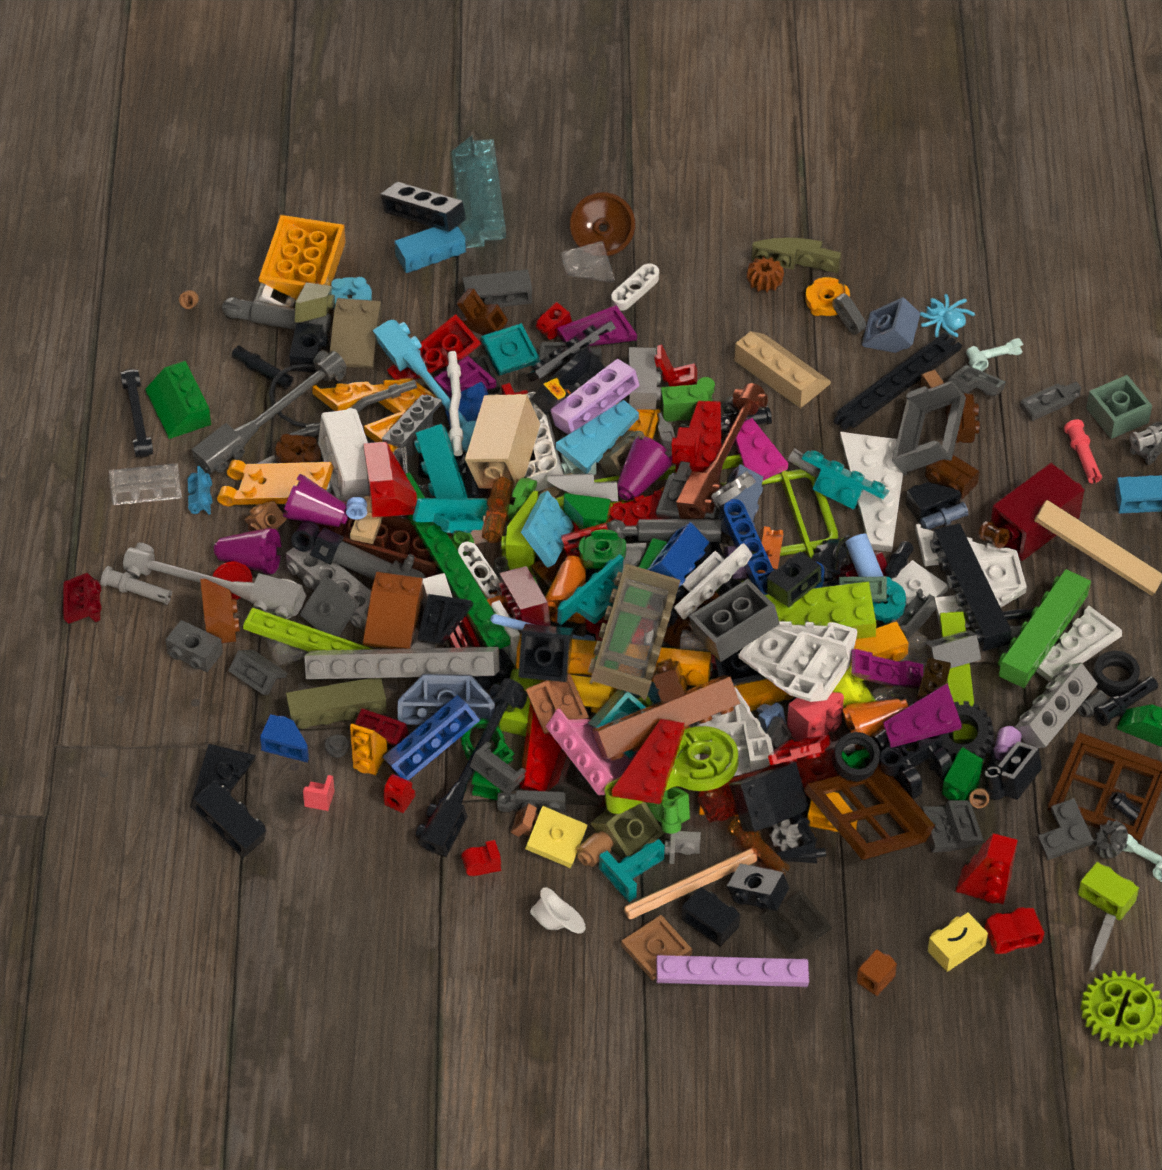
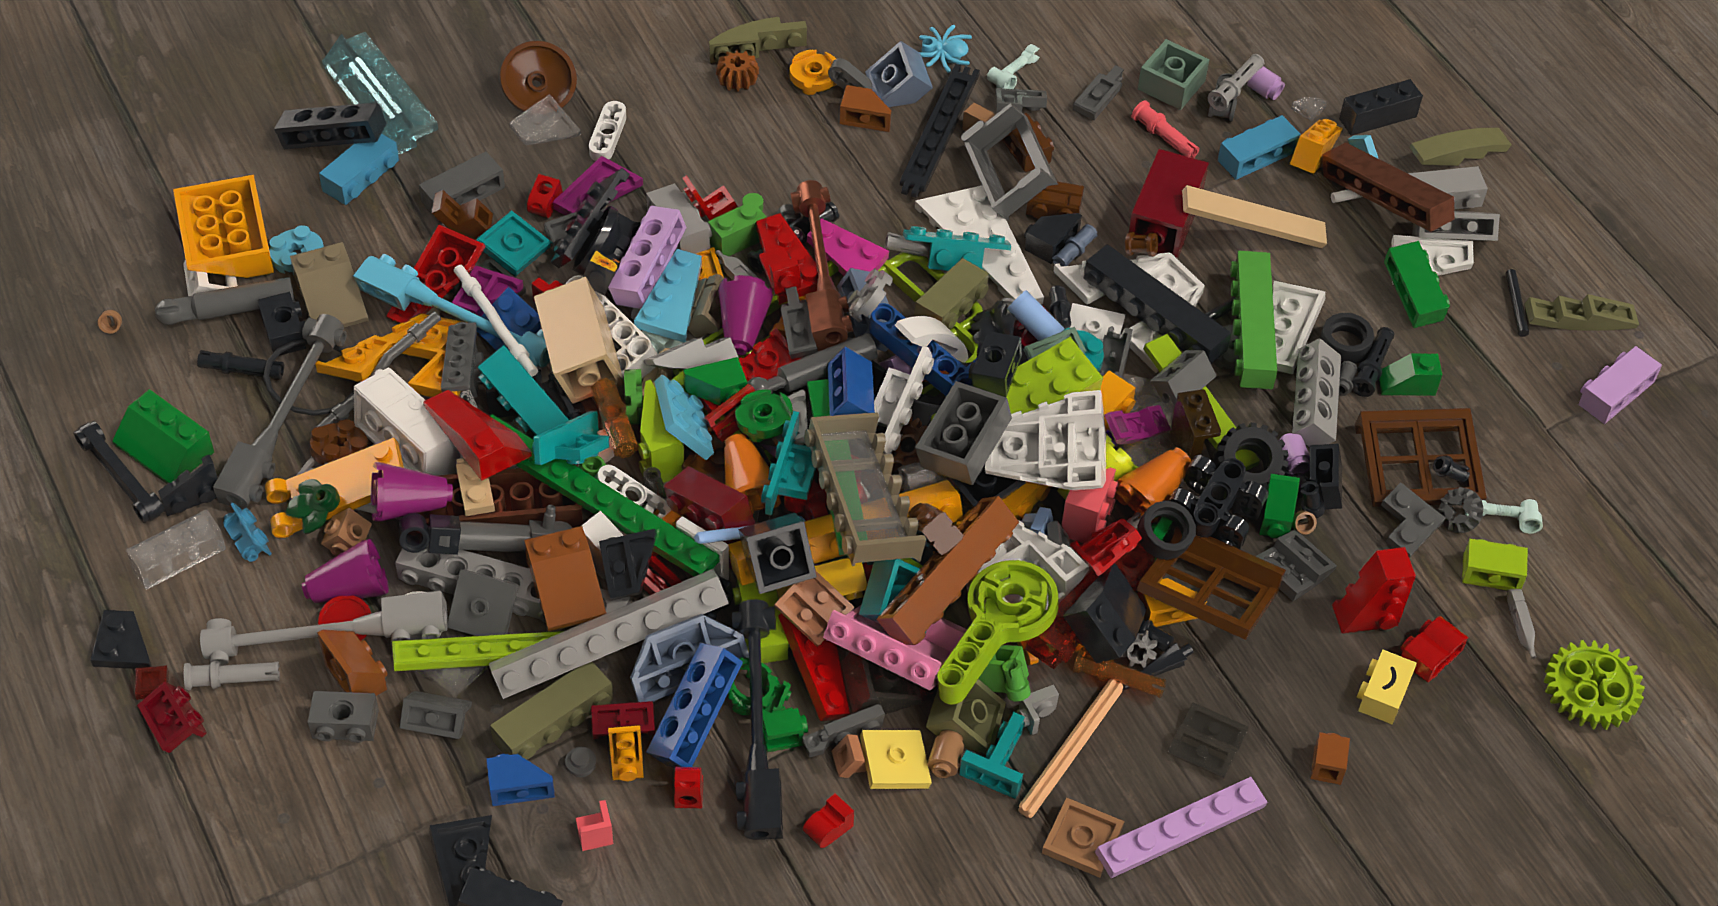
camera: 30 degrees left, 0 degrees up
(75, 534) = (119, 642): none -> black wing
(81, 566) = (149, 679): none -> clear red tile
(176, 444) = (190, 488): none -> black wing
(252, 488) = (313, 504): none -> dark green plate
(313, 302) = (267, 269): olive slope -> none
(356, 508) = (460, 476): light blue bush -> none
(496, 770) = (792, 712): dark grey hinge -> none
(556, 914) = (952, 849): white piece -> none
(651, 767) = (976, 631): red wing -> none
(710, 916) = (1119, 775): black brick -> none
(754, 531) = (924, 329): none -> white slope
(758, 887) = (1137, 711): black brick -> none
(779, 368) = (811, 160): tan slope -> none
(813, 517) = (954, 293): none -> olive brick
(845, 342) = (864, 109): none -> dark orange slope
(924, 719) = (1220, 459): magenta wing -> none

